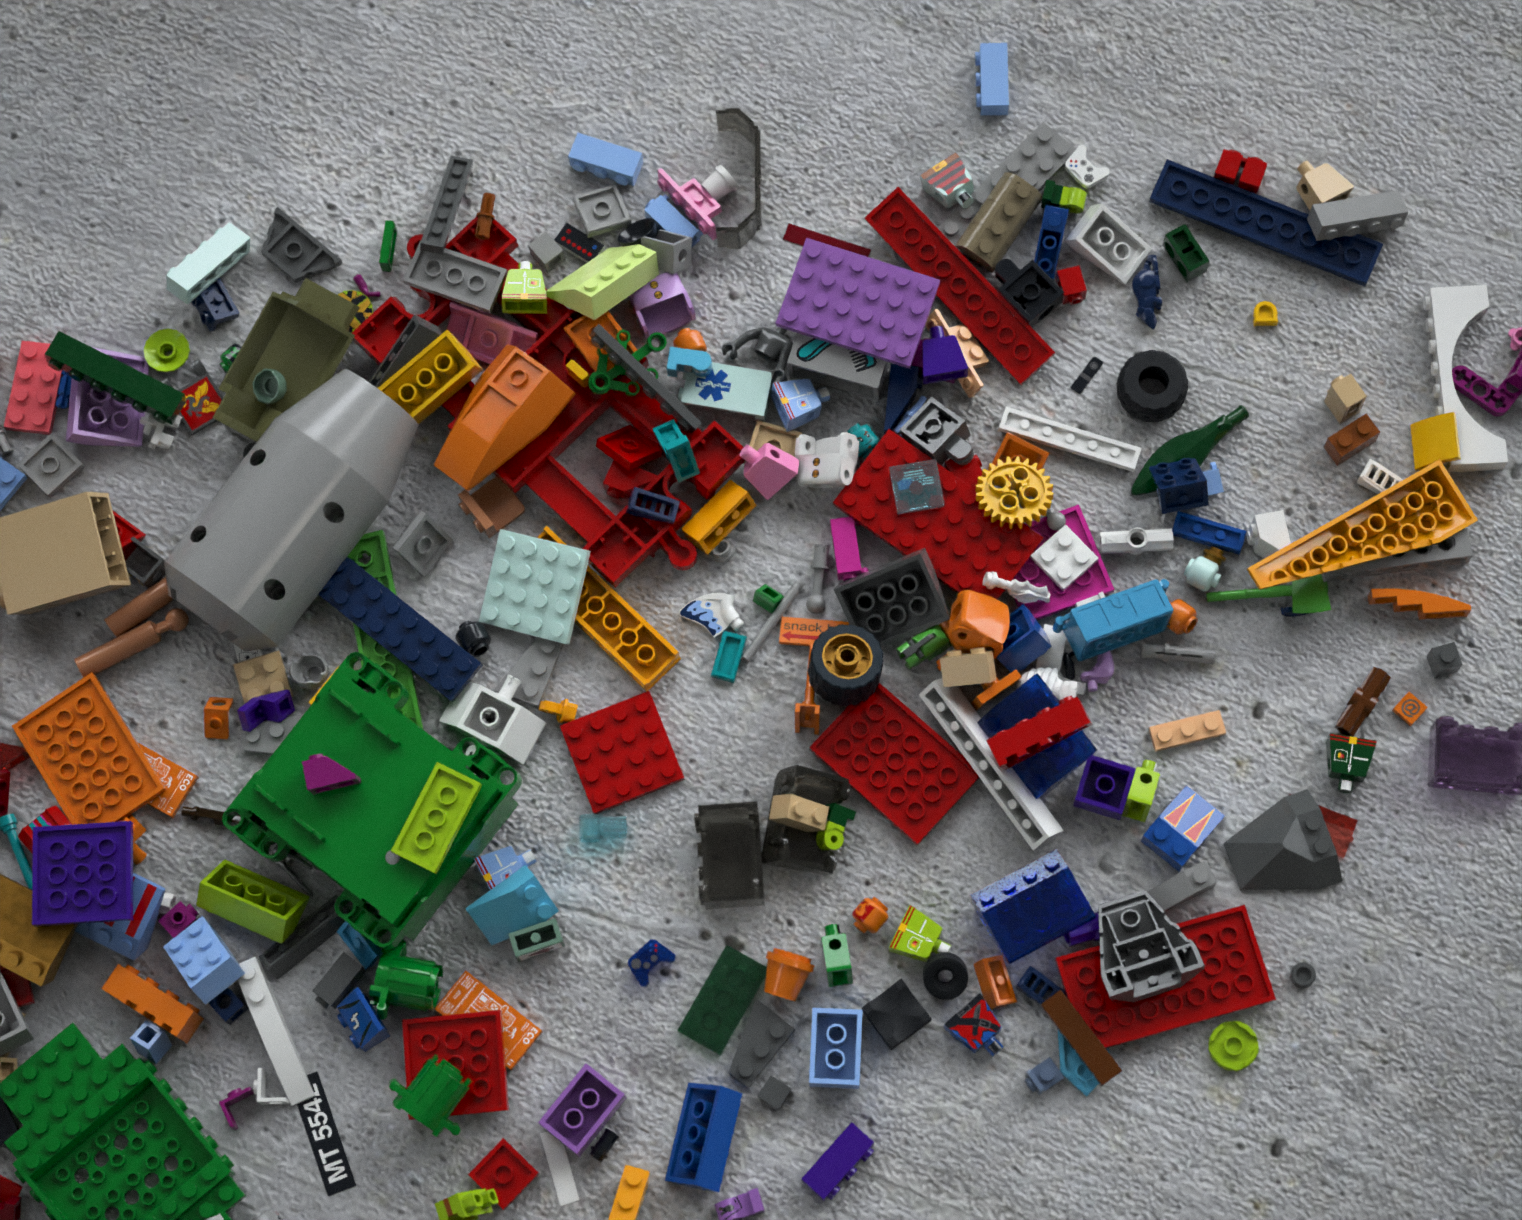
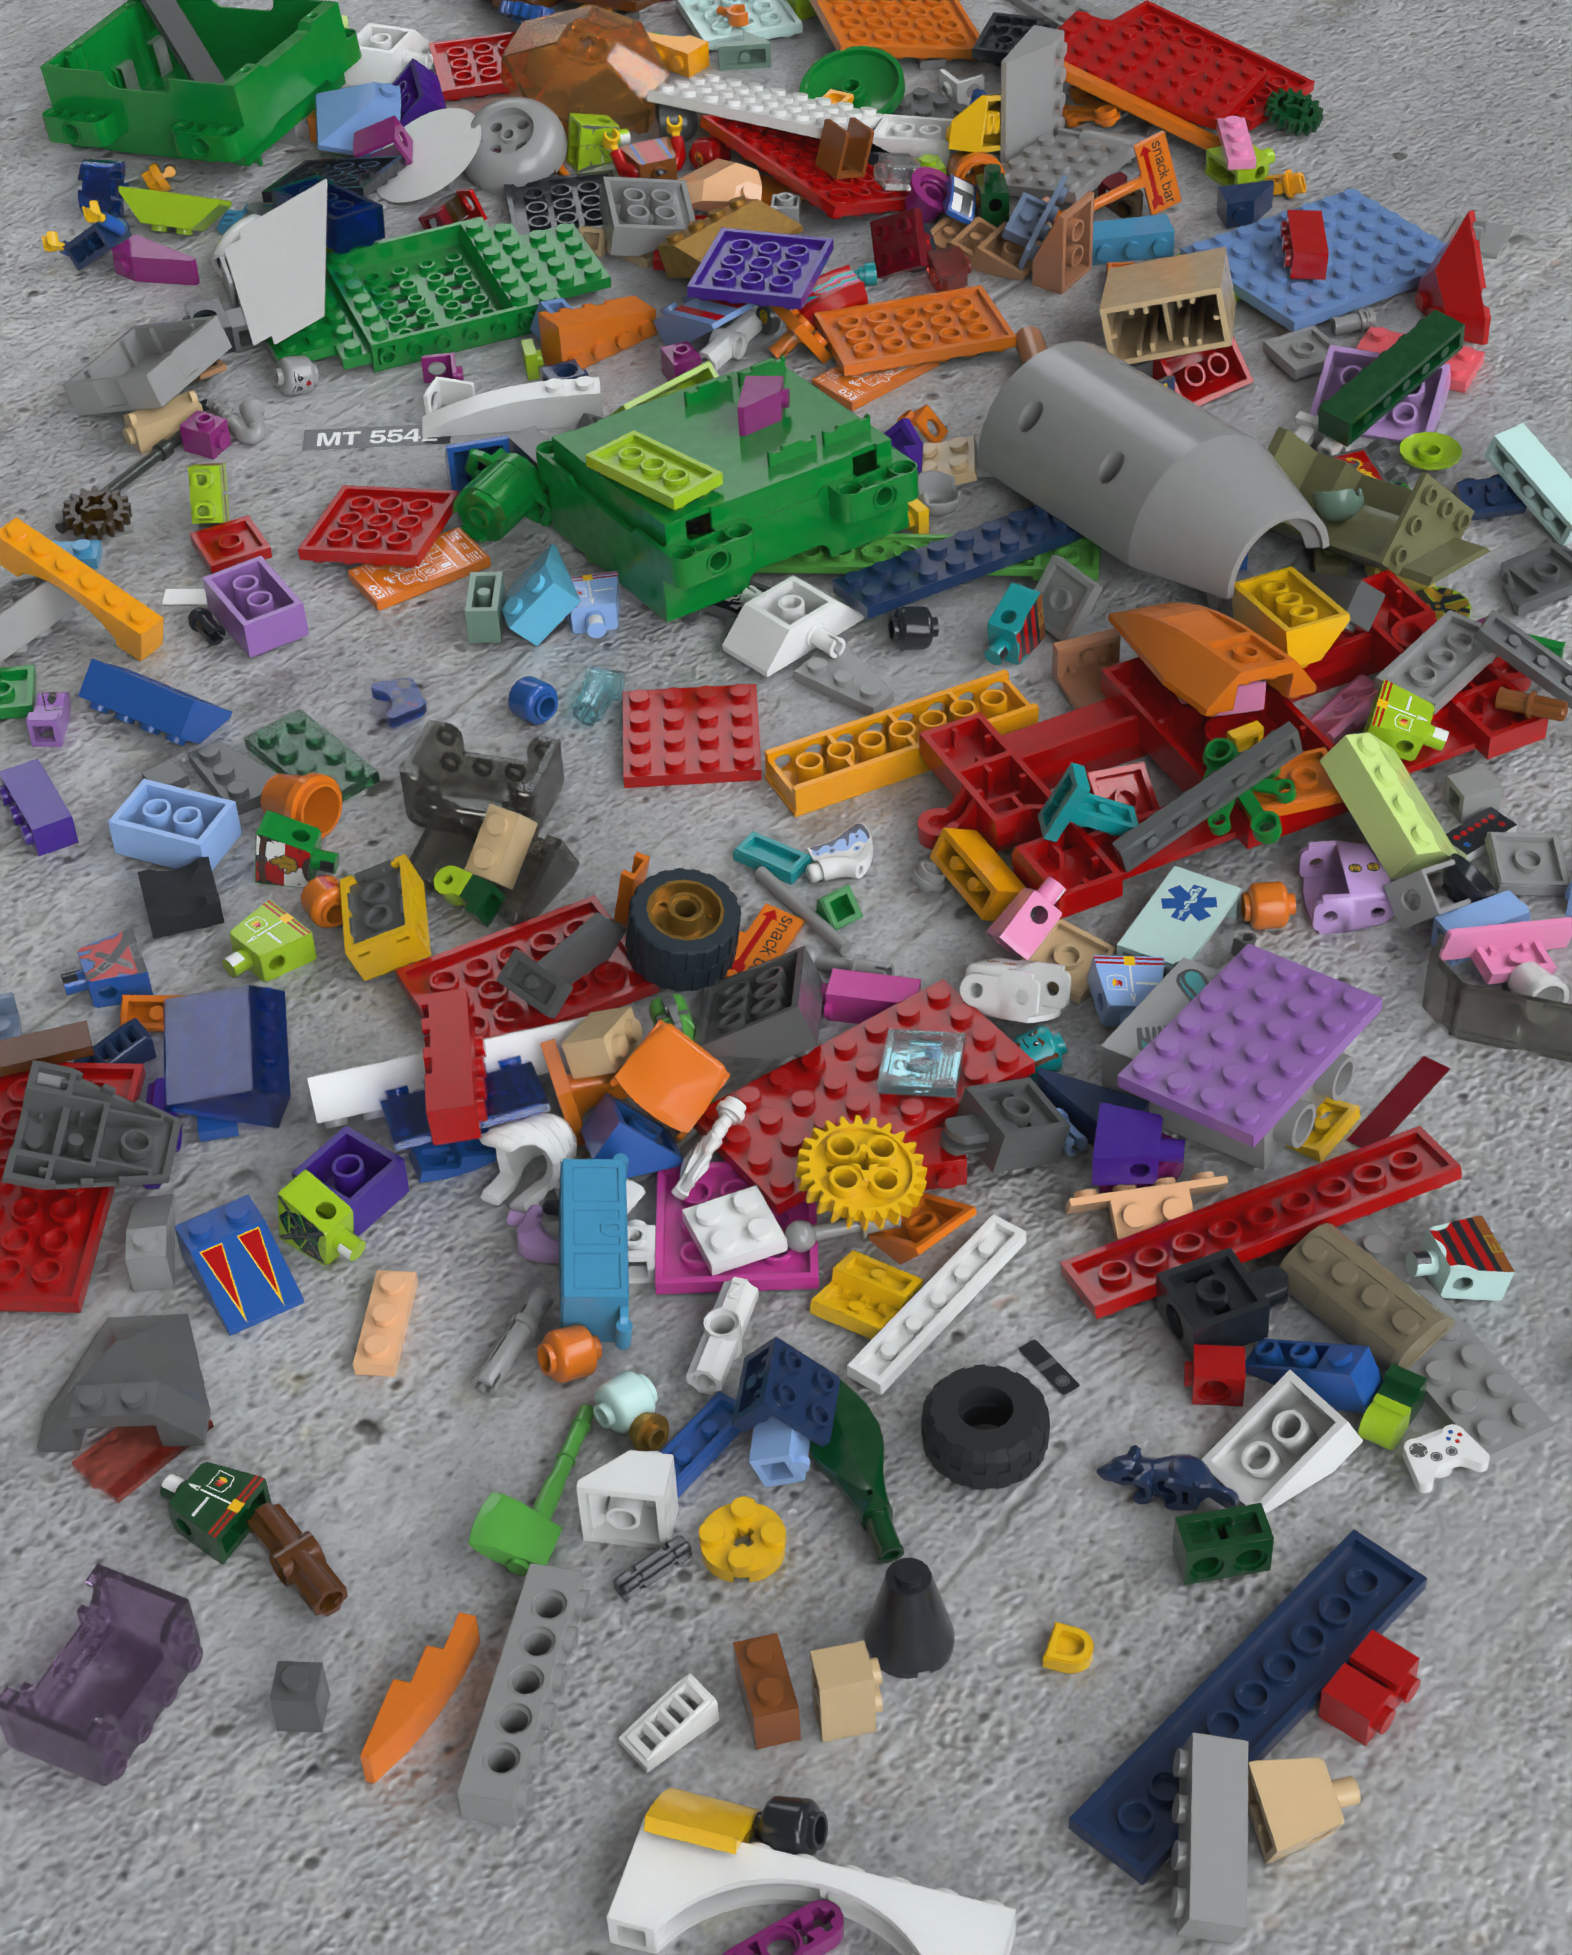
camera: 105 degrees right, 30 degrees down
(199, 1045) = (531, 359): none -> lime plate
(204, 960) = (617, 354): light blue brick -> none
(432, 1095) = (345, 477): green container -> none
(453, 564) = (1015, 626): none -> teal torso
(534, 586) = (954, 677): light aqua plate -> none
(564, 711) = (779, 688): light orange piece -> none
(625, 867) = (533, 700): none -> blue head
(646, 496) = (1015, 758): dark blue slope -> none
(688, 361) = (1231, 872): medium azure leg -> none
(881, 864) = (384, 917): none -> piece
(915, 739) = (549, 981): none -> dark grey piece
(949, 989) = (196, 950): black tyre -> none
(1076, 479) = (864, 1294): none -> yellow slope
(1266, 499) = (738, 1520): none -> yellow plate
(1286, 387) = (909, 1622): none -> black cone
(1297, 525) = (652, 1567): none -> black axle
(1398, 520) = (572, 1688): light orange wedge -> none
(1409, 708) = (251, 1630): orange tile -> none
(1420, 403) = (792, 1825): none -> black head

